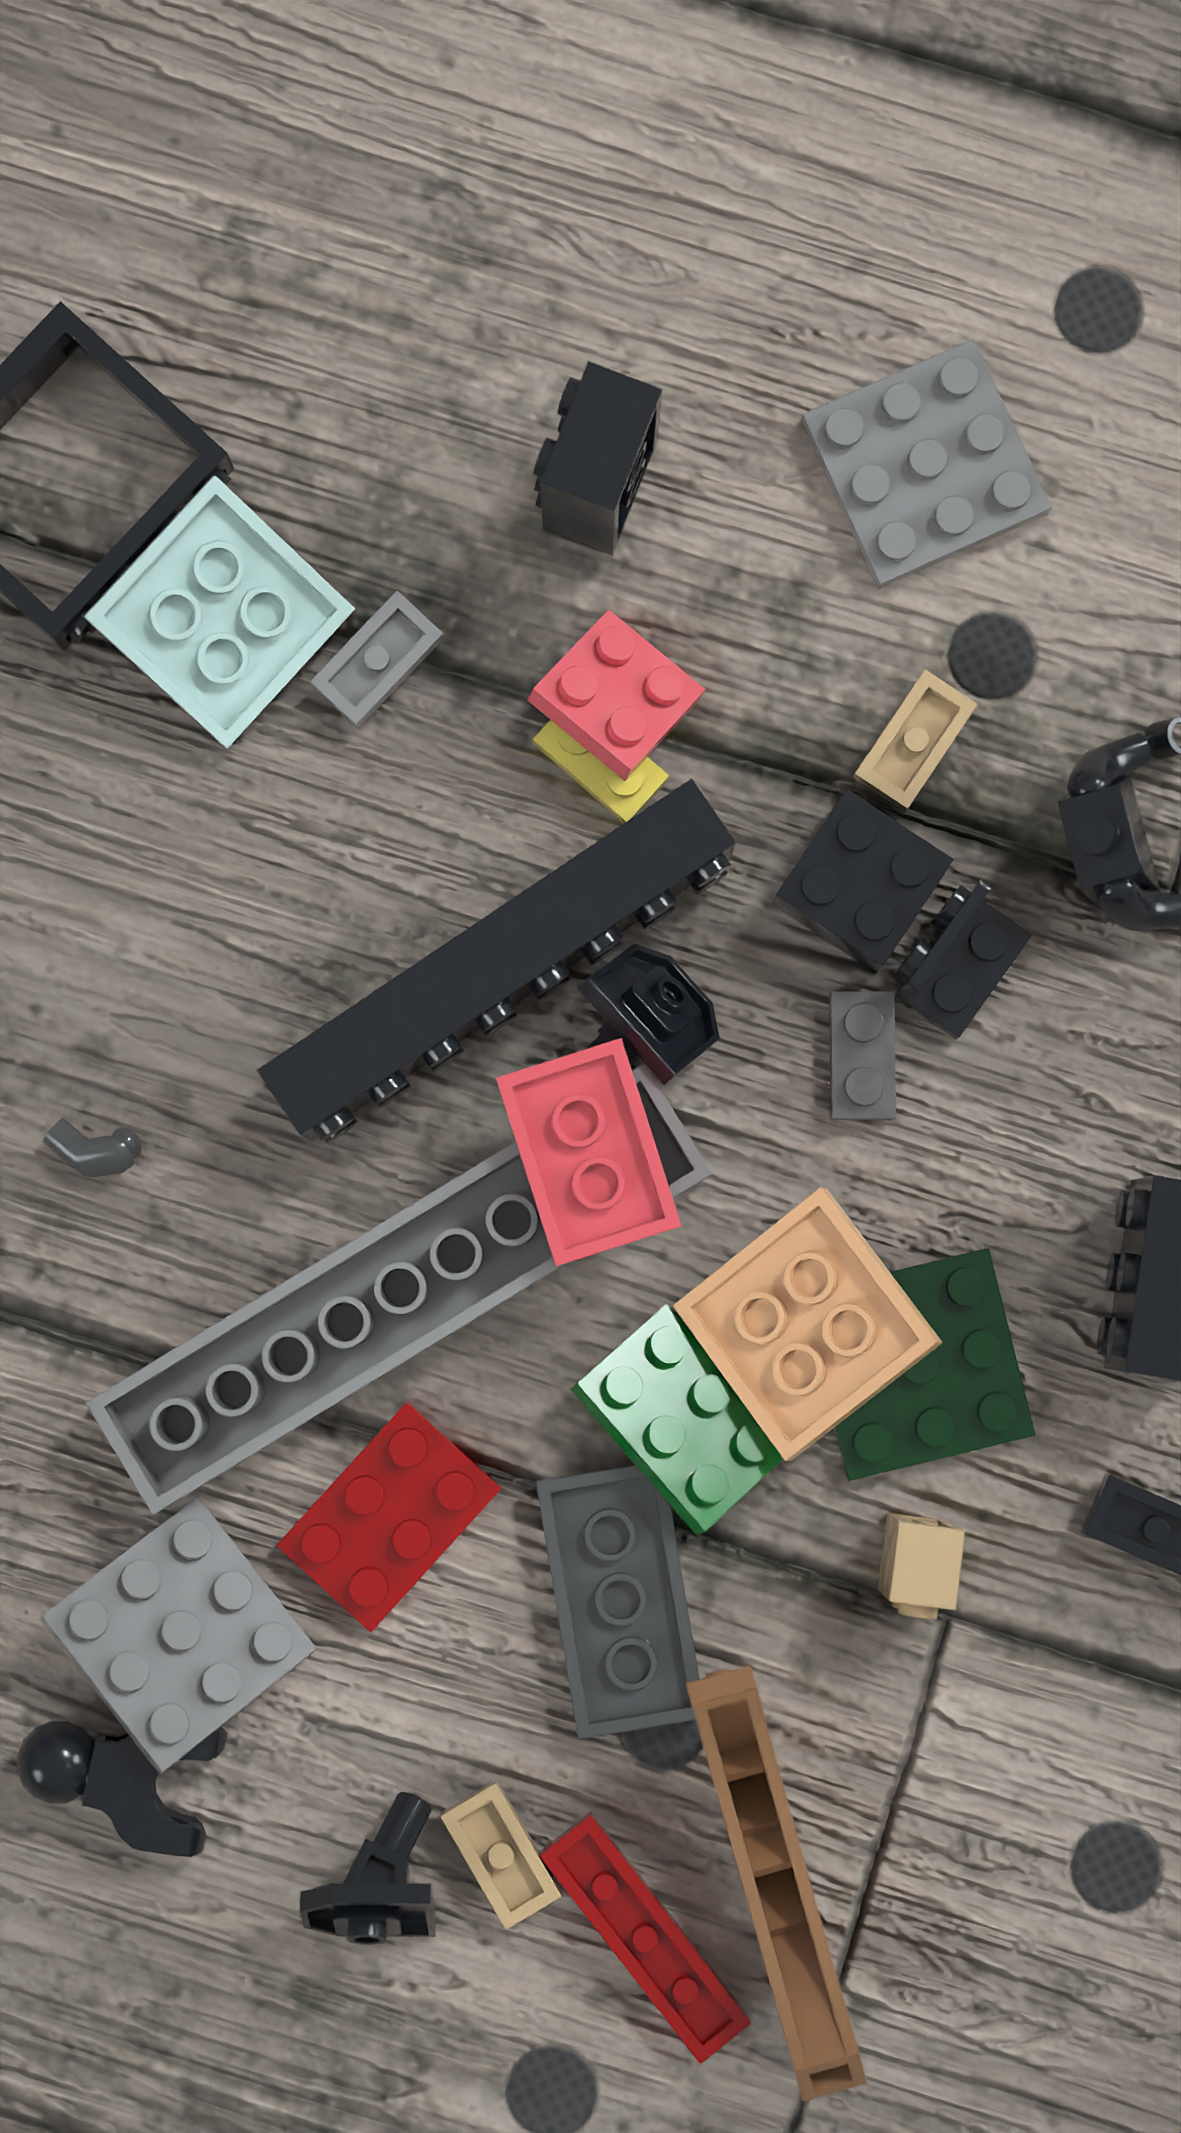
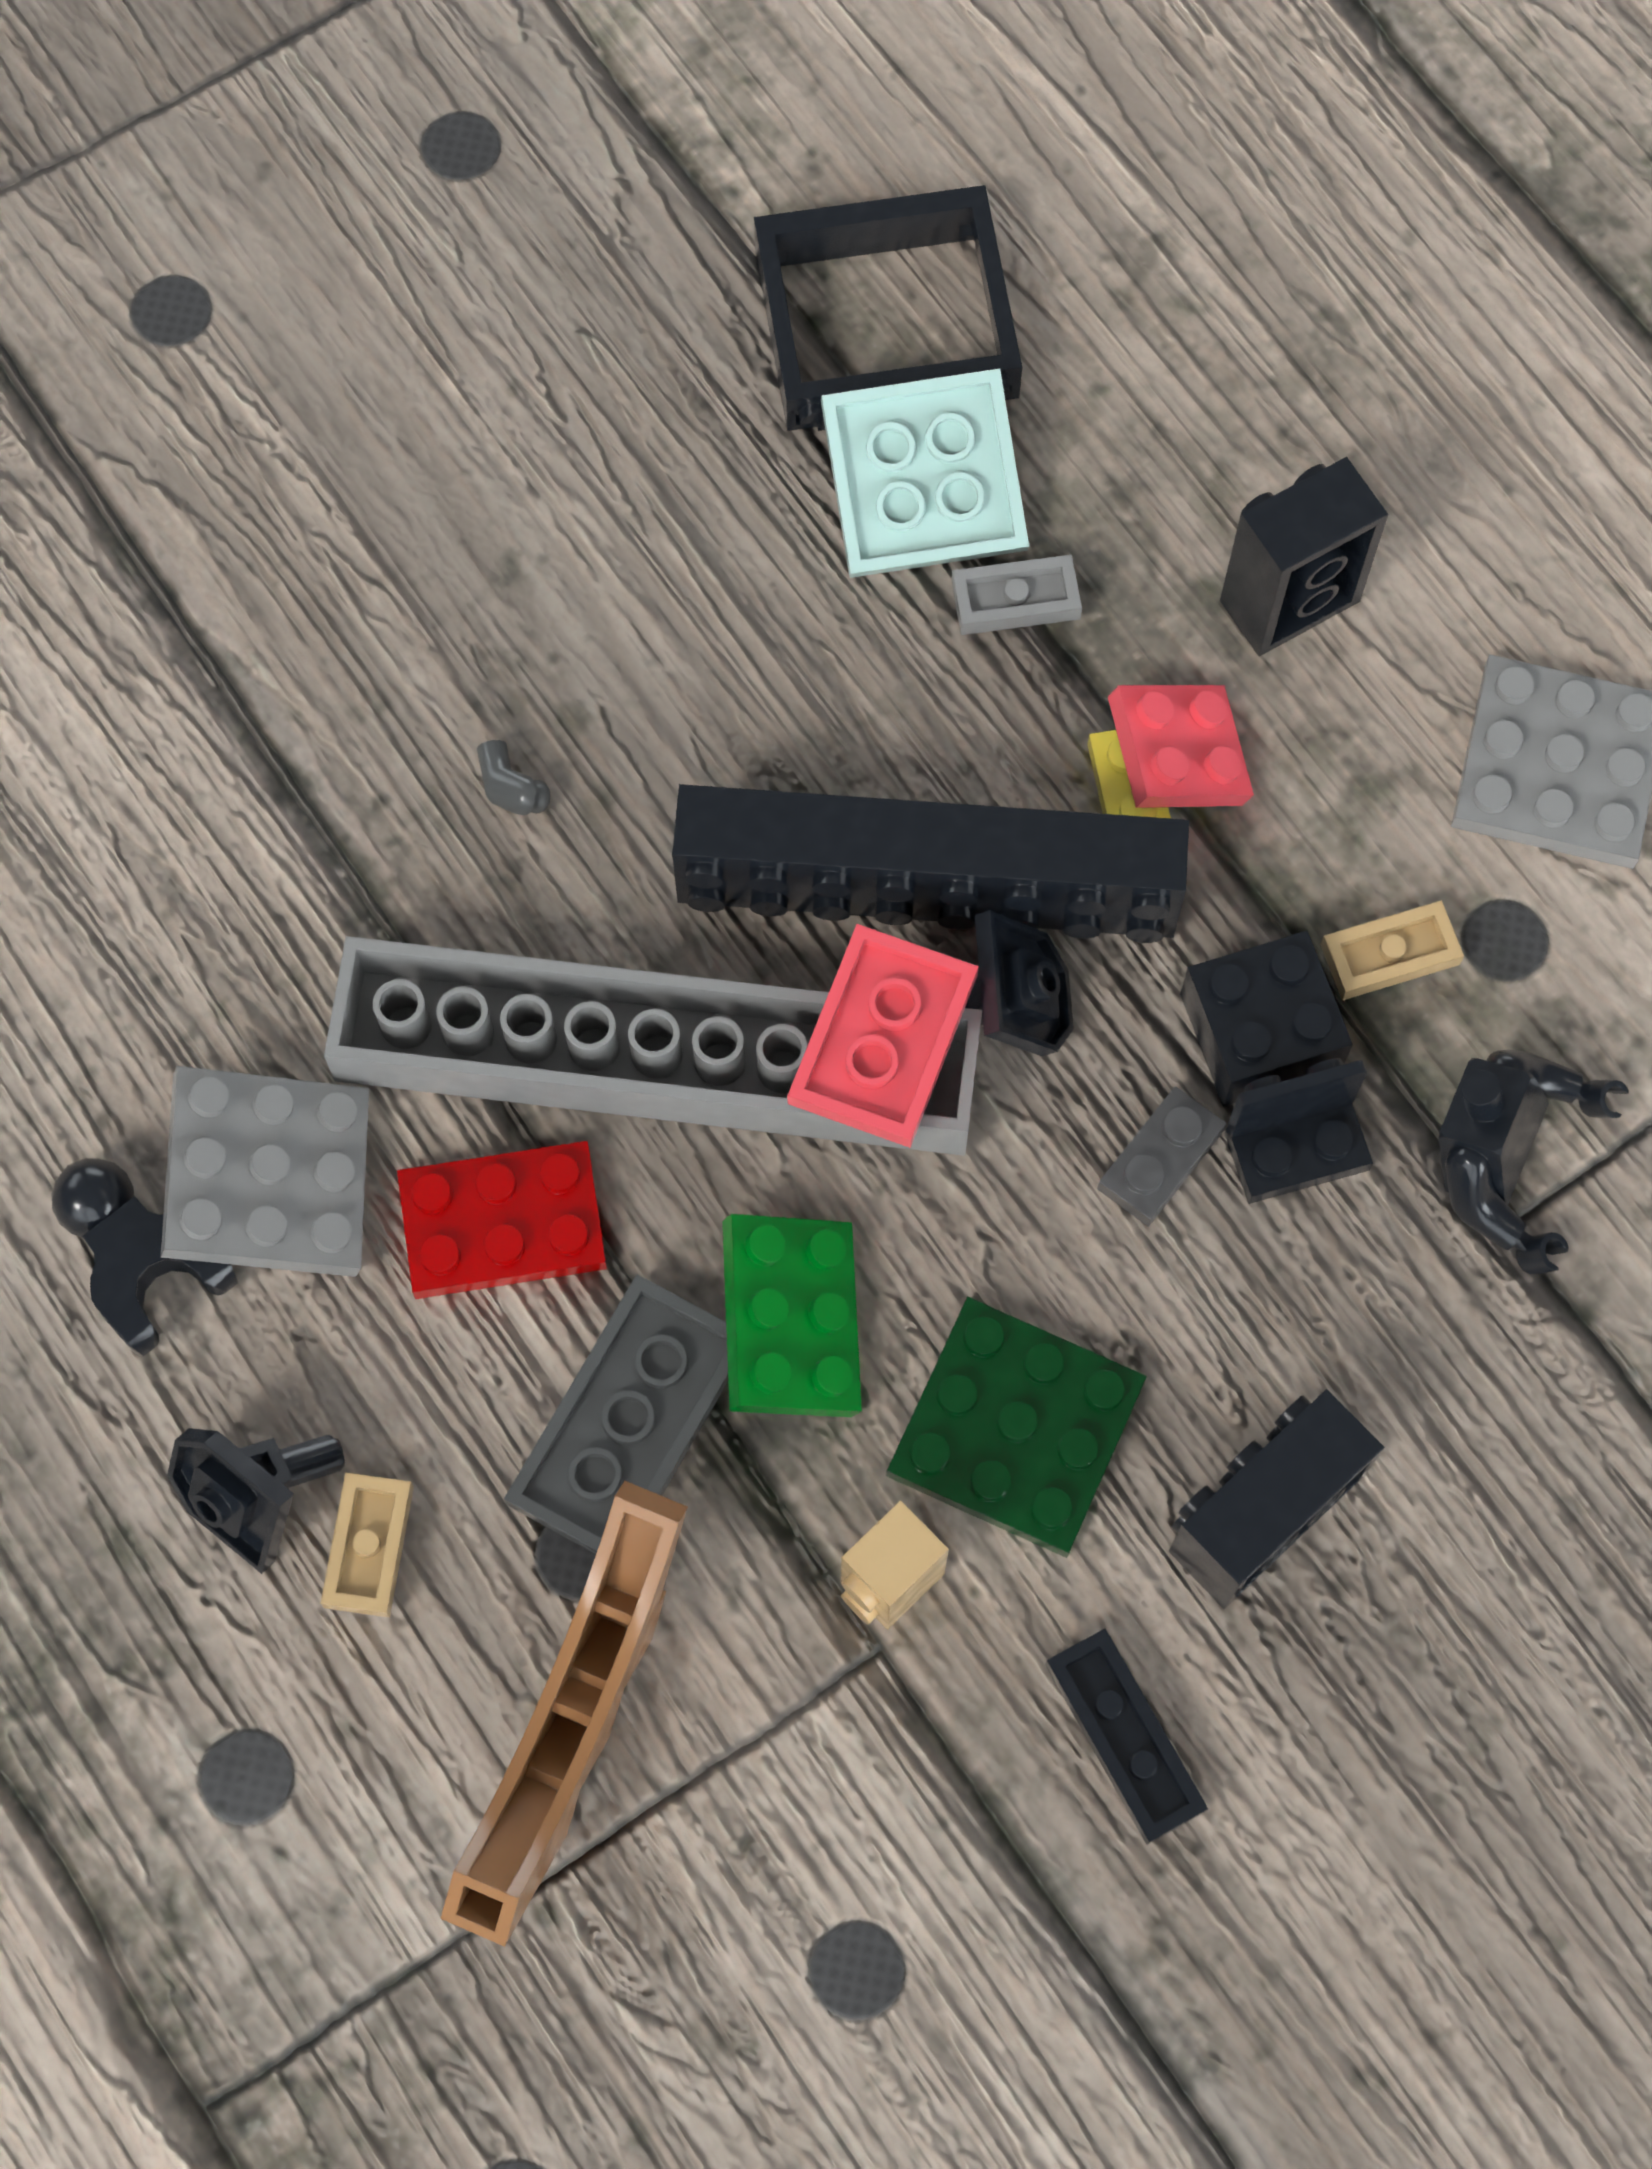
camera: 40 degrees right, 15 degrees down
(645, 1937) = (424, 1705): red plate -> none
(806, 1324) = (951, 1312): light nougat plate -> none

